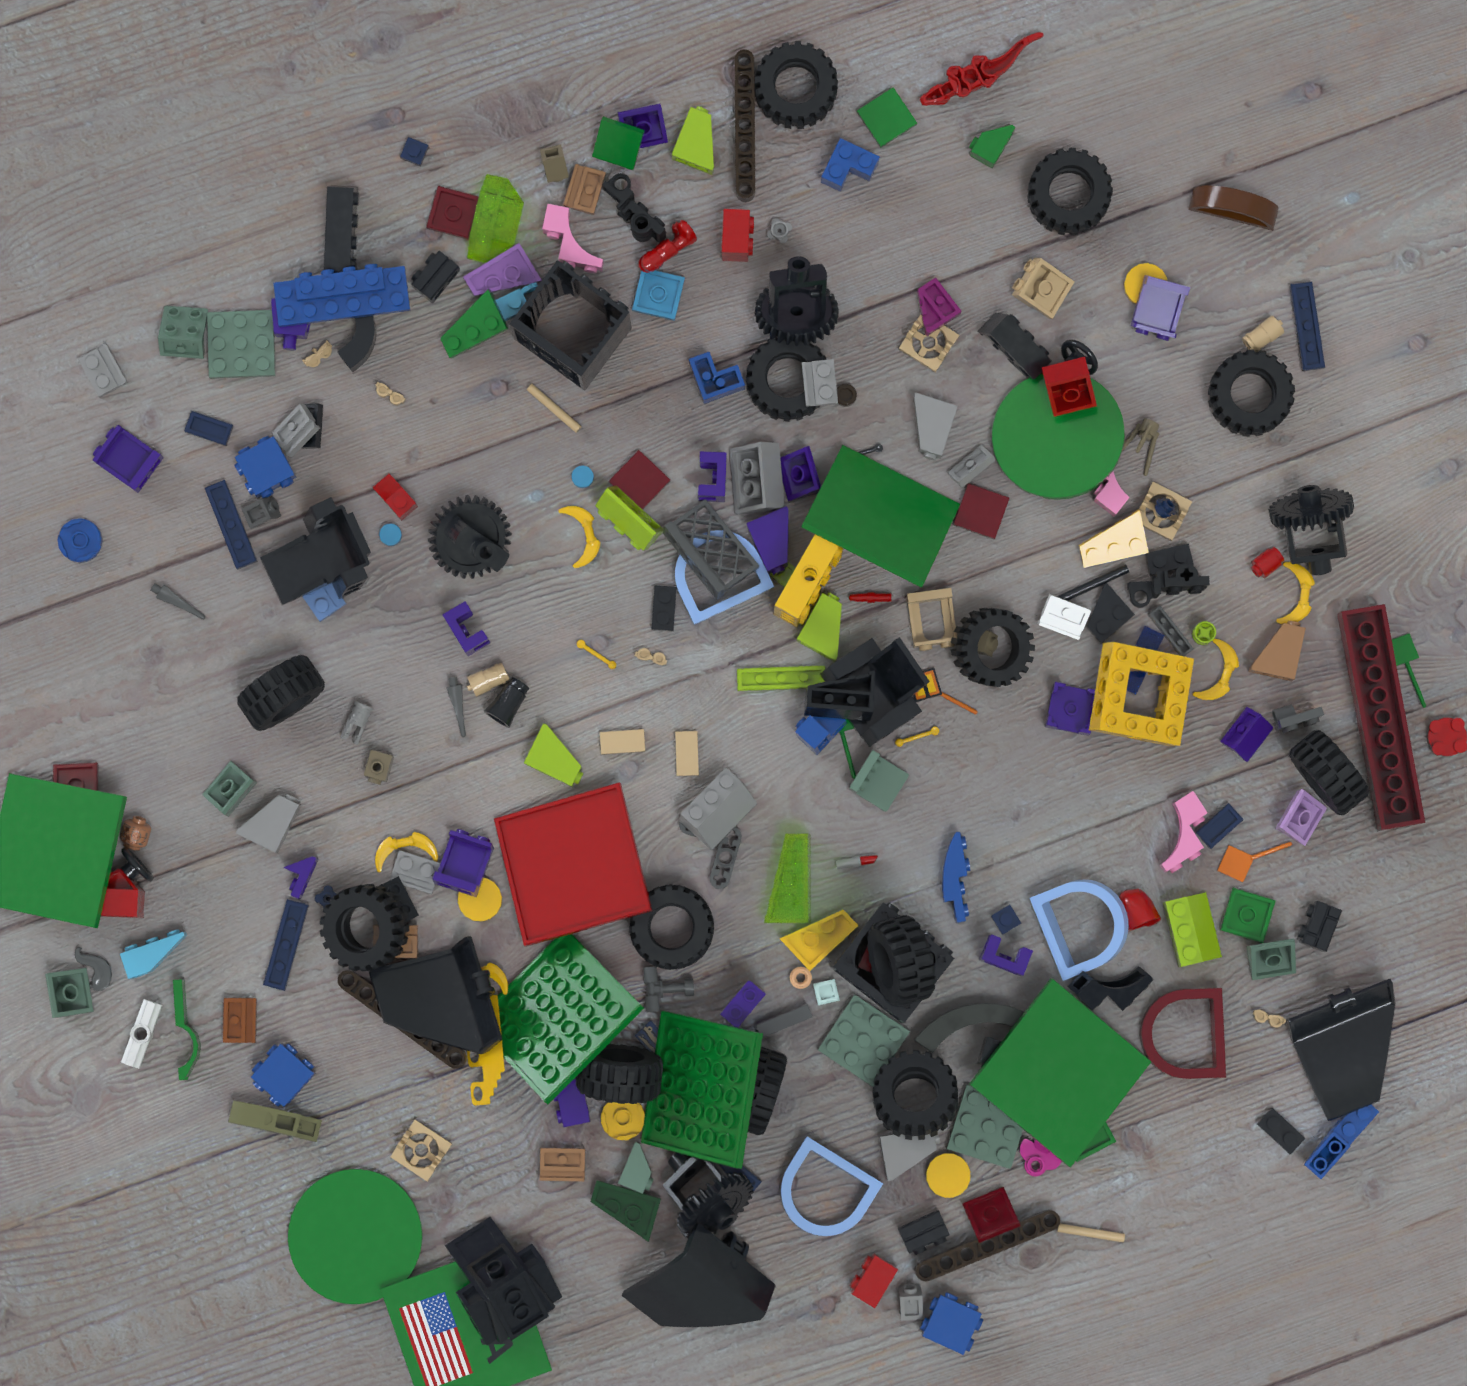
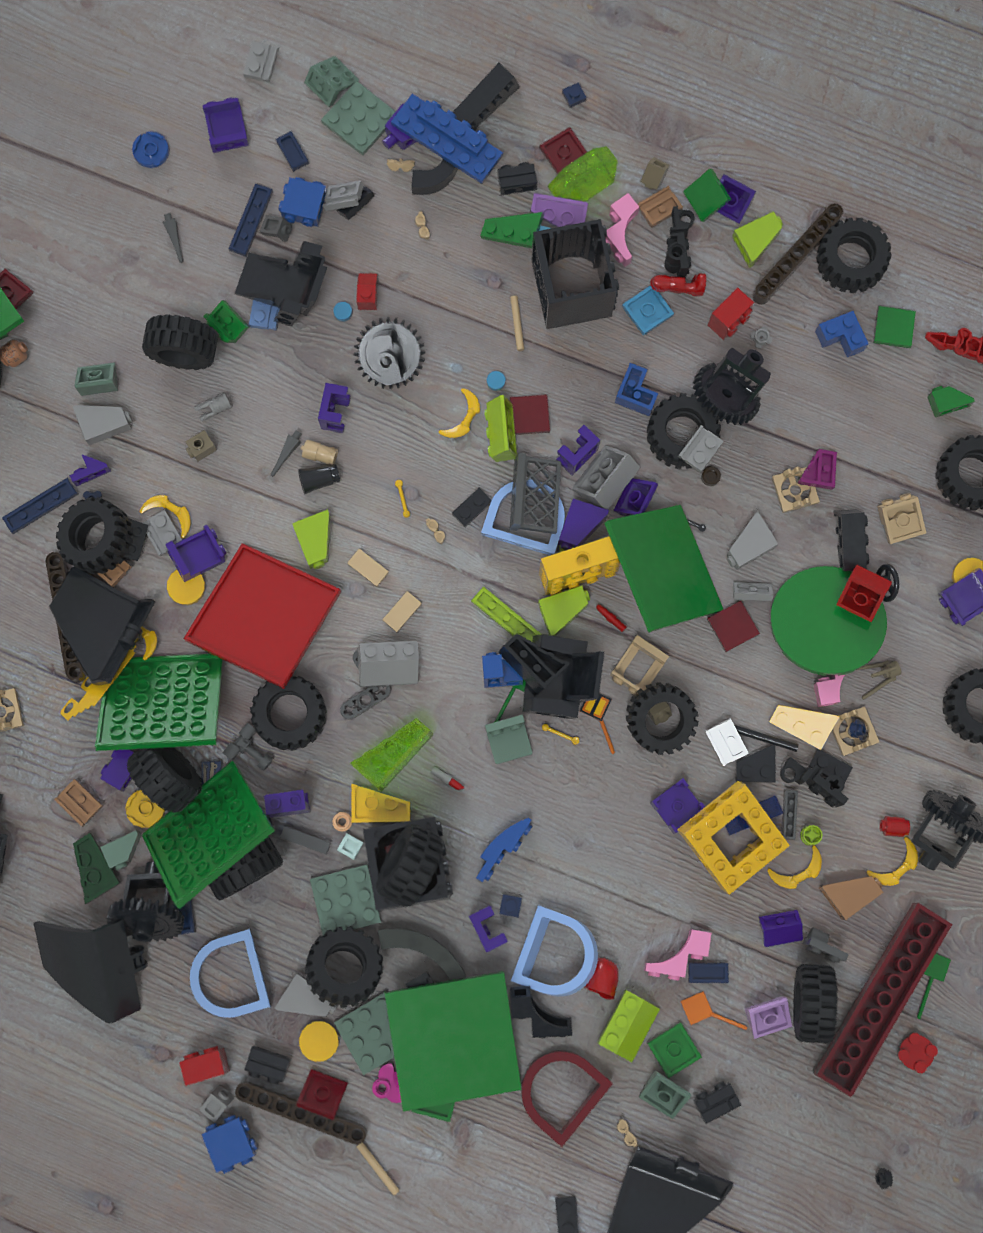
camera: 40 degrees right, 5 degrees down
(298, 637) = (226, 322): none -> green bracket

